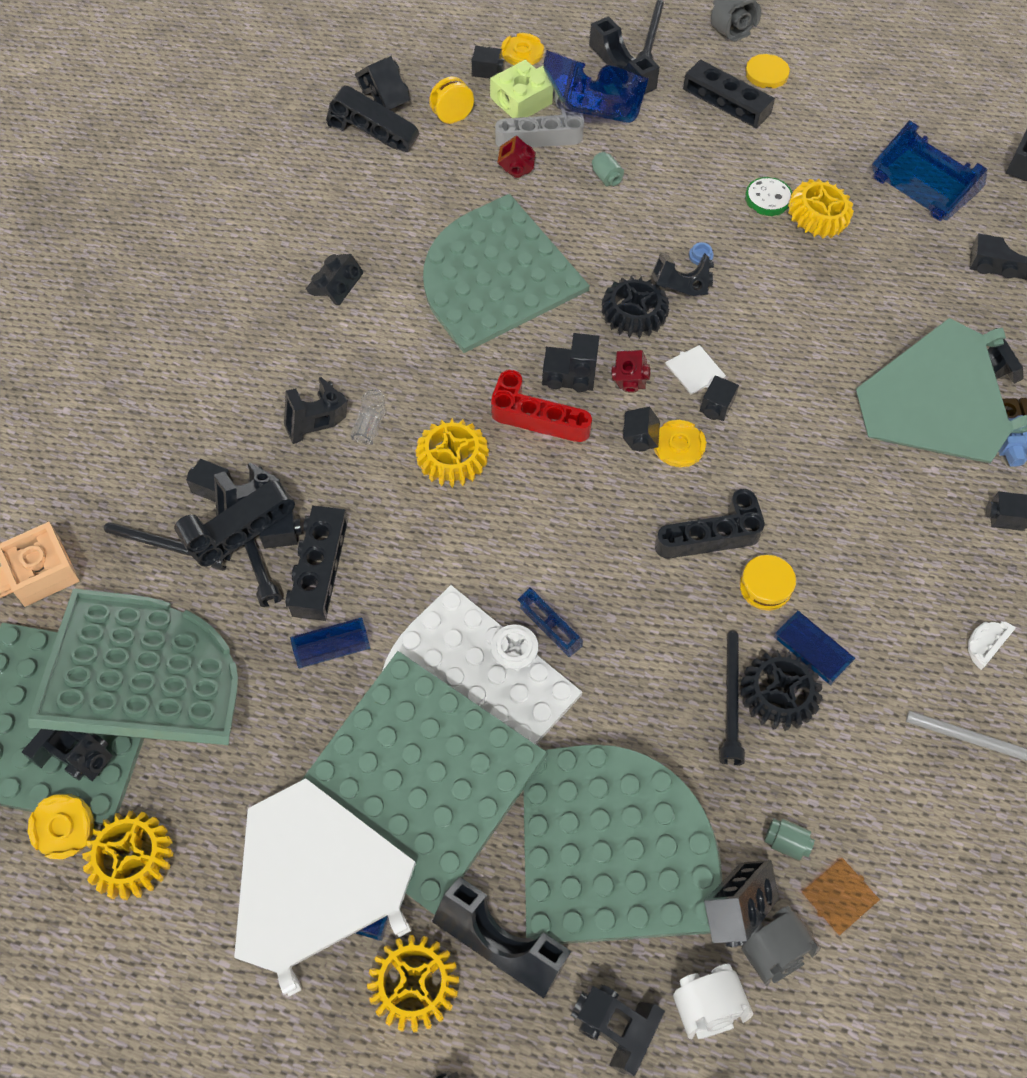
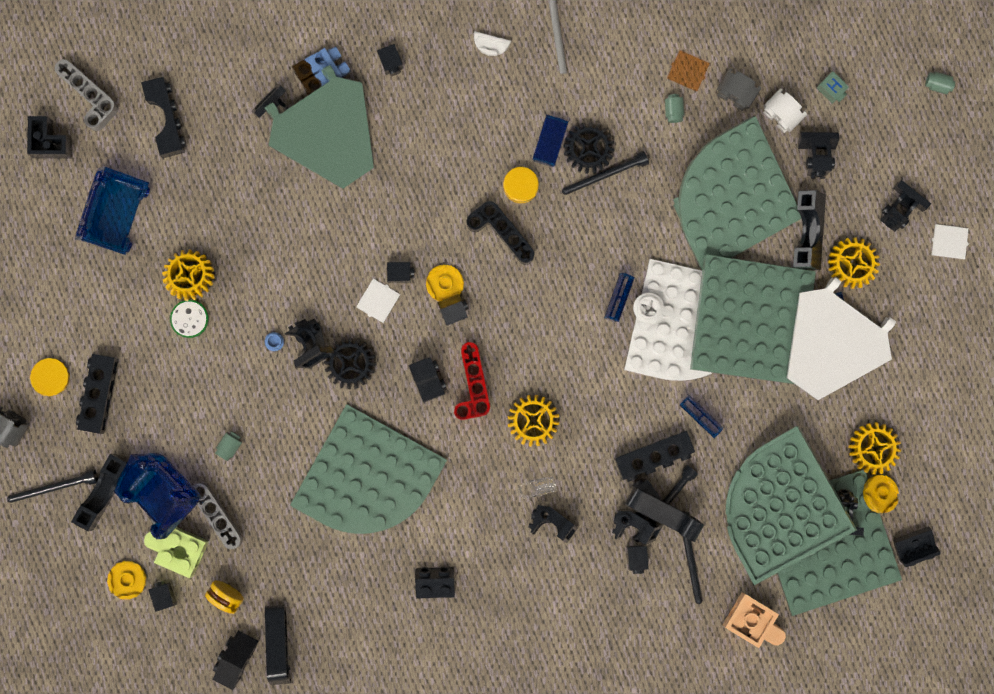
camera: 120 degrees left, 25 degrees up
(516, 157) = (254, 513): dark red brick -> none
(631, 370) = (410, 338): dark red brick -> none
(741, 902) = (734, 114): black brick -> none

